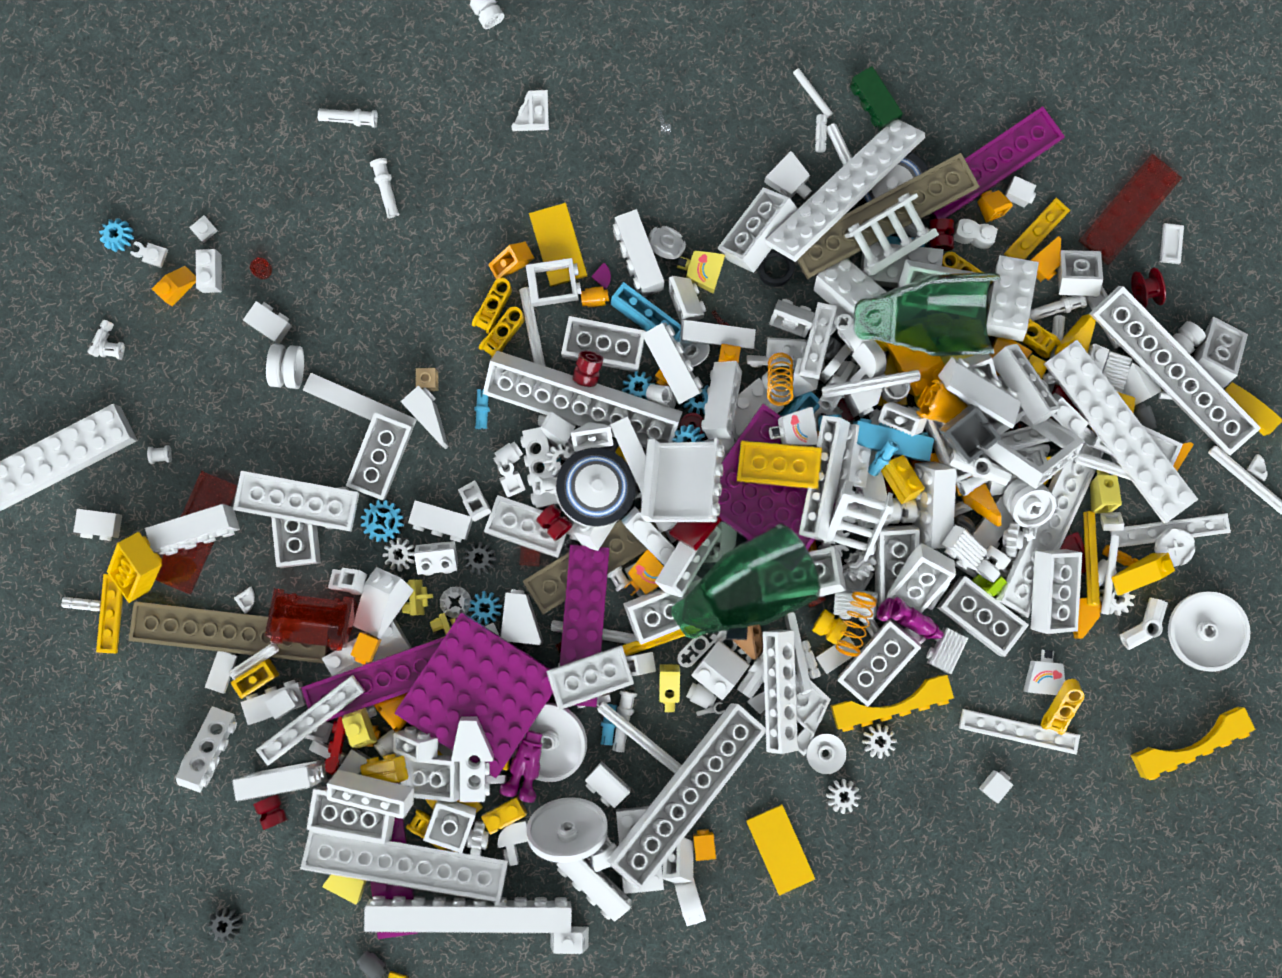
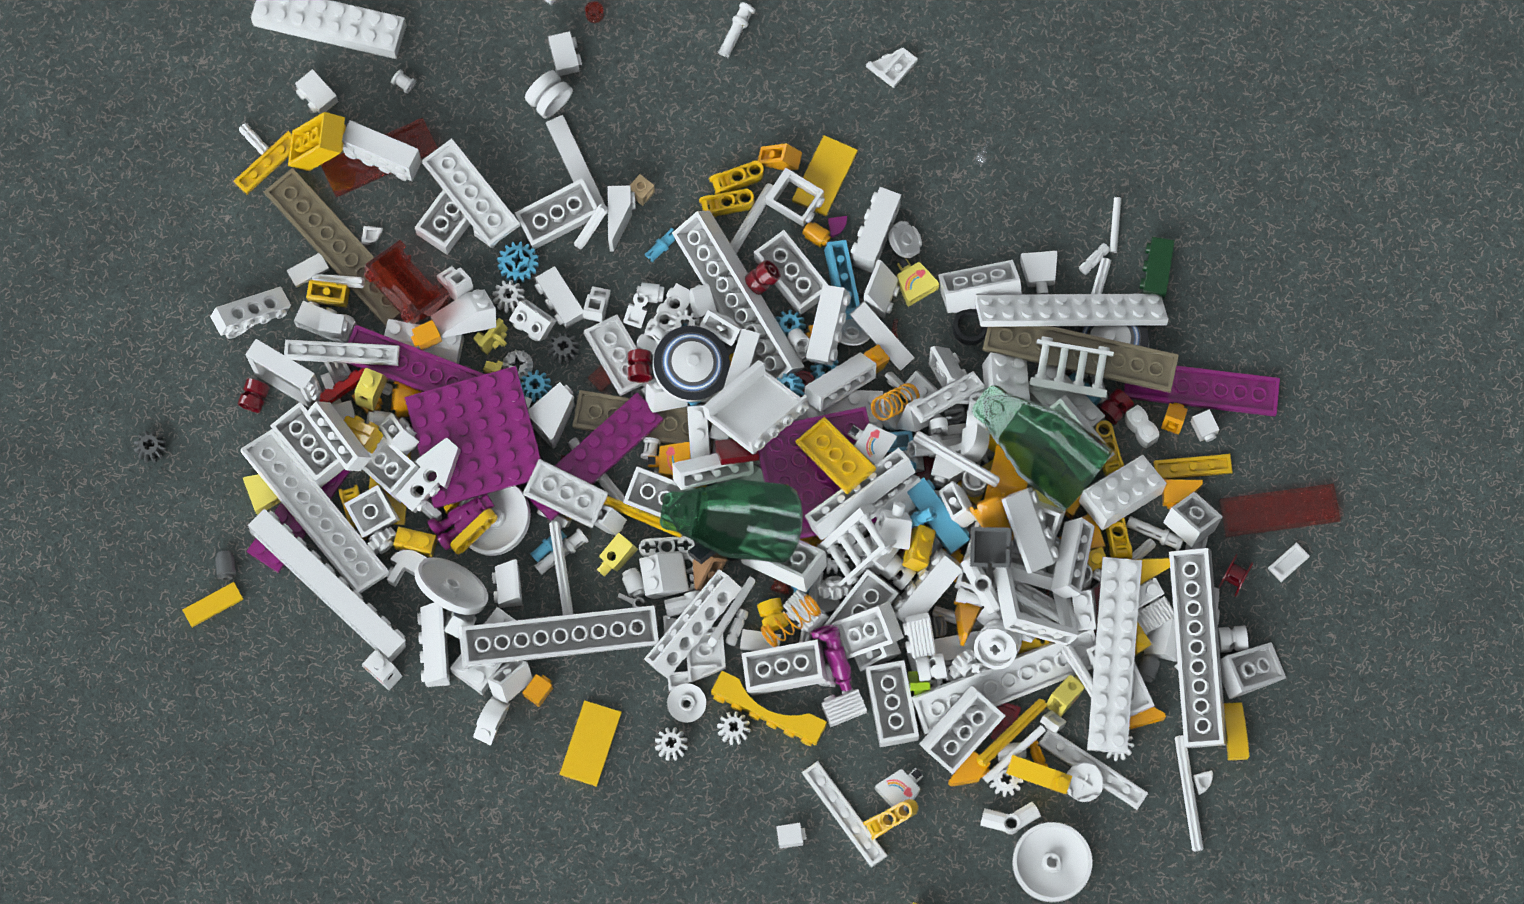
camera: 40 degrees right, 10 degrees down
(415, 443) = (591, 226): none -> white axle
(543, 768) = (473, 531): none -> yellow beam
(873, 481) = (894, 525): none -> white torso

